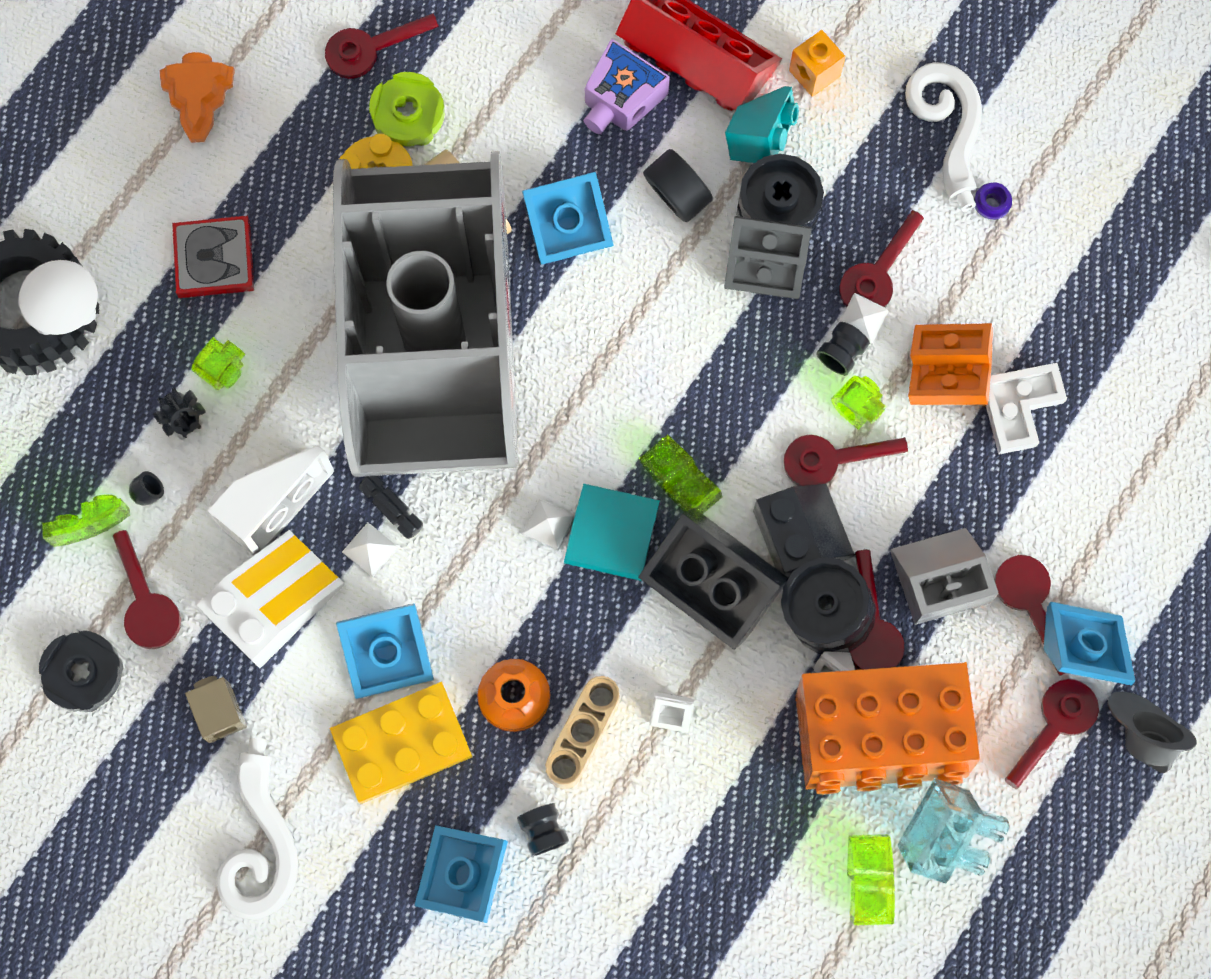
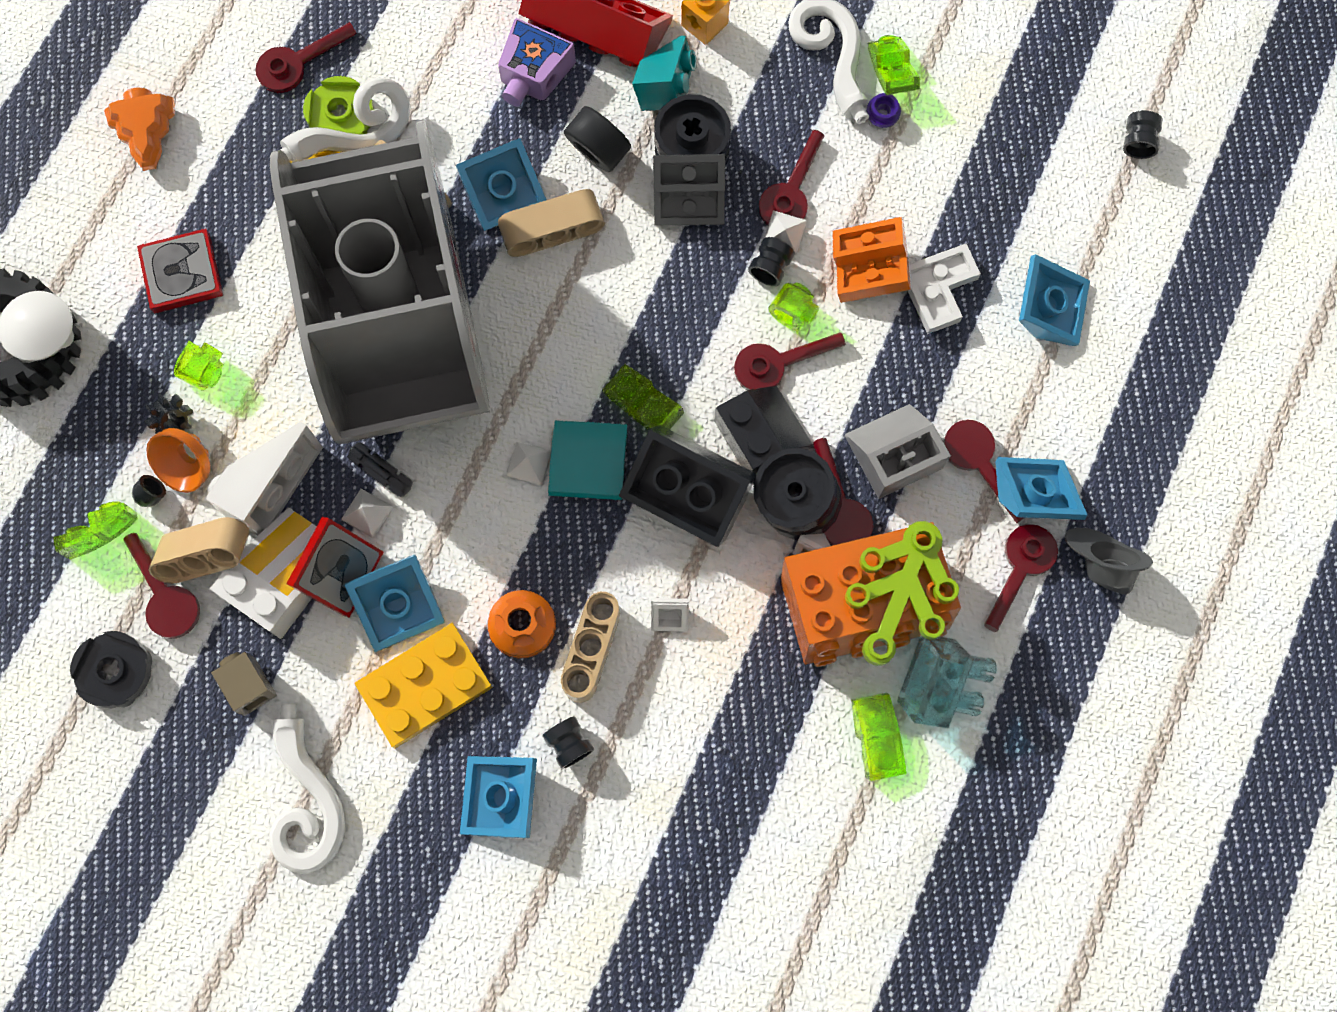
camera: 10 degrees left, 0 degrees up
(176, 464) = (173, 464): none -> orange piece
(191, 562) = (199, 550): none -> tan beam
(326, 596) = (330, 562): none -> tile
(377, 141) = (310, 141): none -> white plant
(613, 268) = (551, 223): none -> tan beam
(923, 726) = (904, 586): none -> lime plant
(1011, 152) = (892, 65): none -> clear neon green slope
(1141, 442) = (1053, 302): none -> dark azure slope

